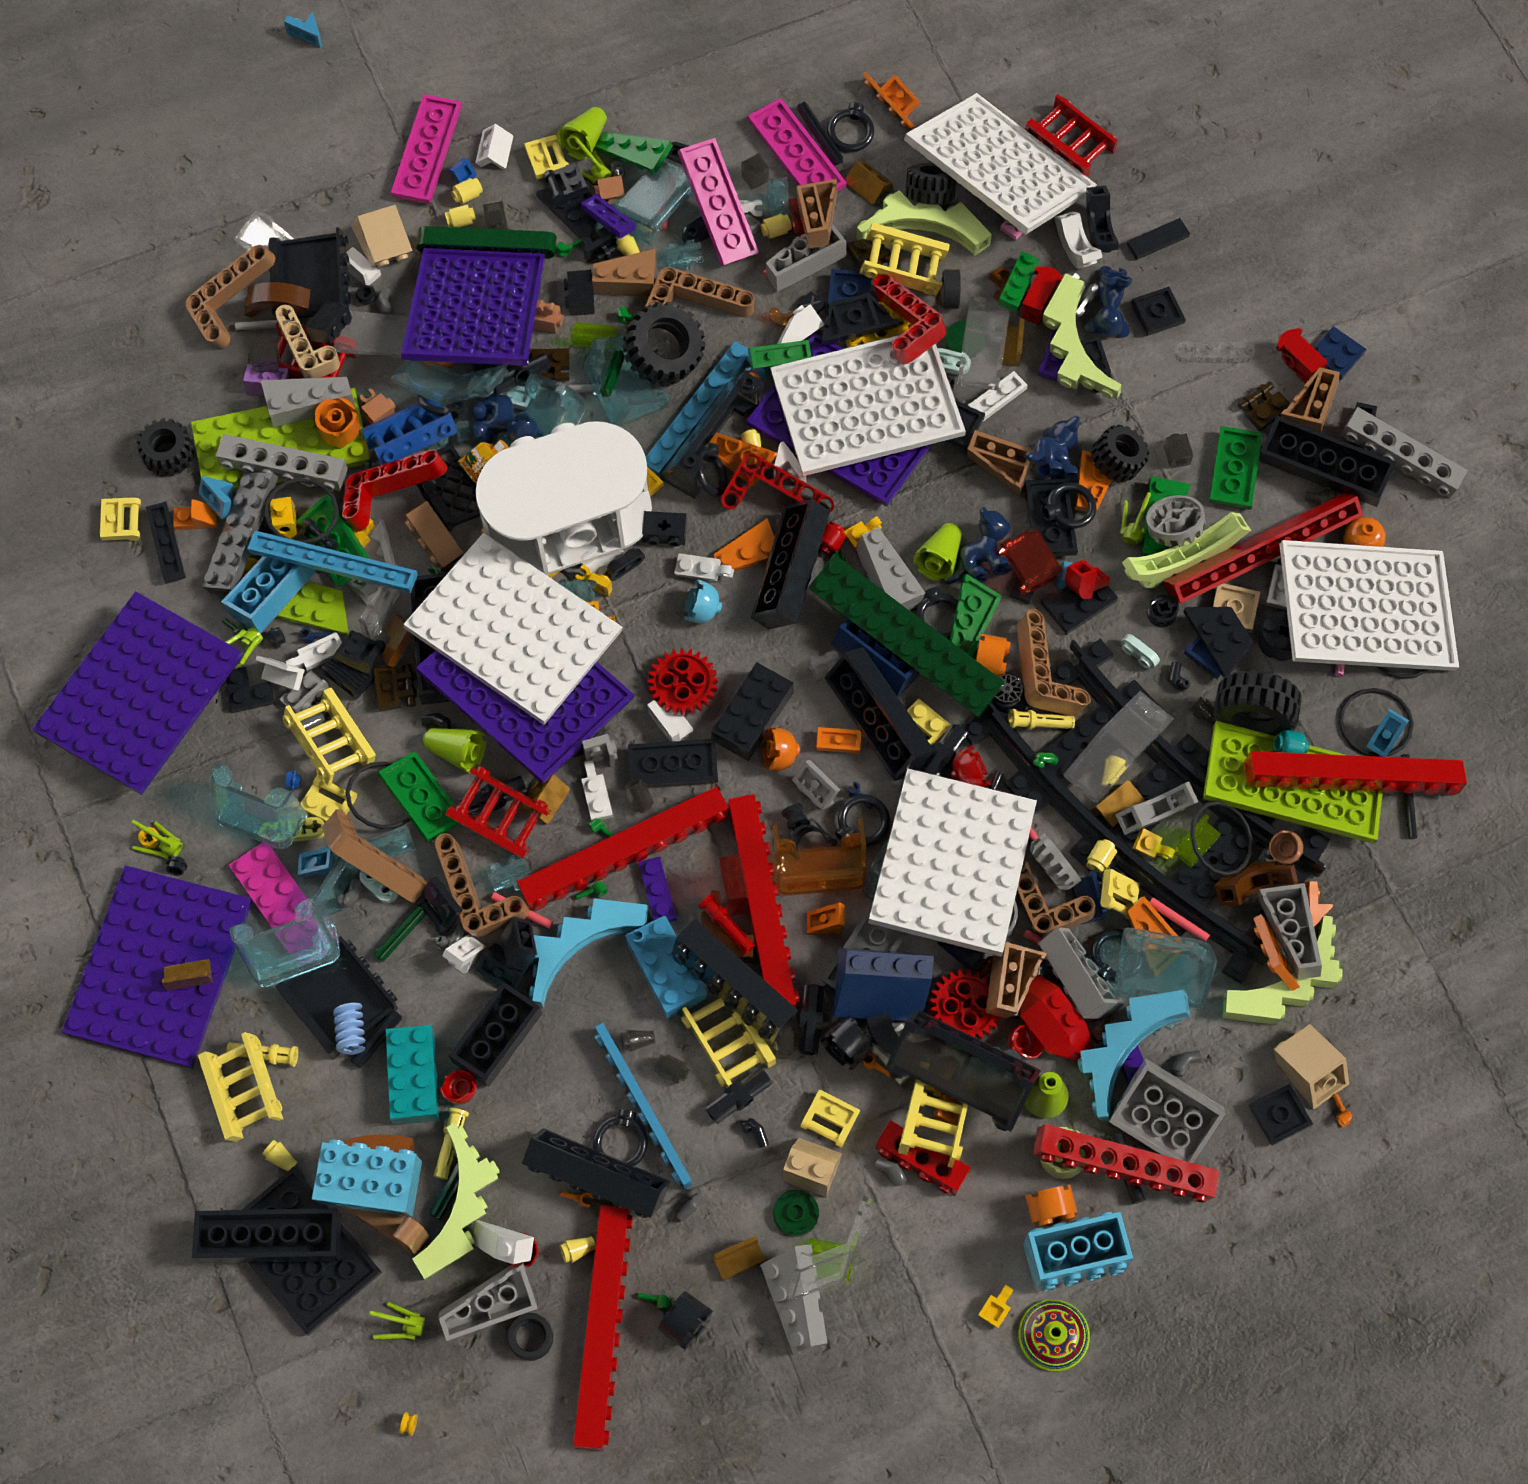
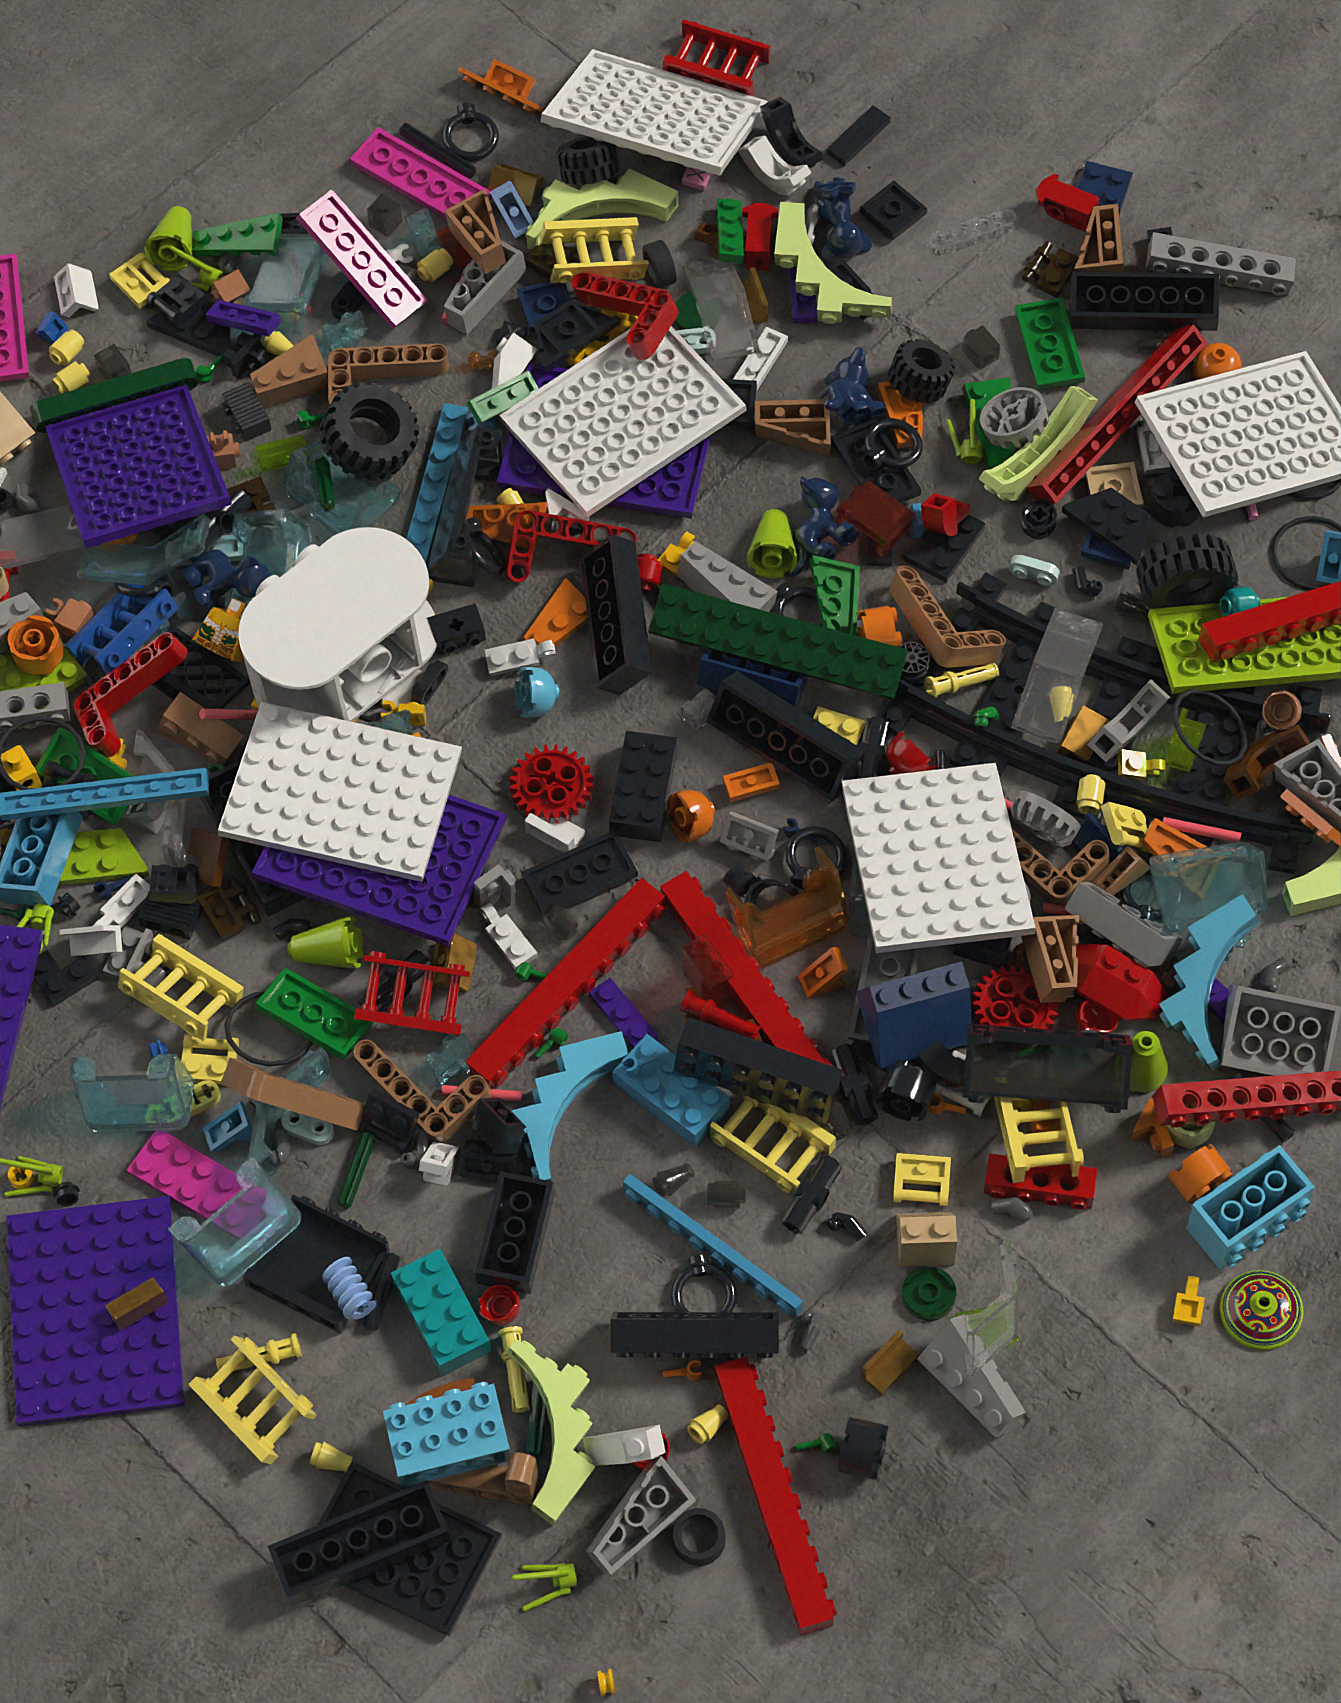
camera: 20 degrees left, 5 degrees down
(455, 531) = (228, 714): none -> coral bar
(856, 201) = (512, 208): none -> light blue slope
(1032, 1162) = (1149, 1125): none -> orange slope
(1108, 933) = (1128, 860): none -> medium nougat slope

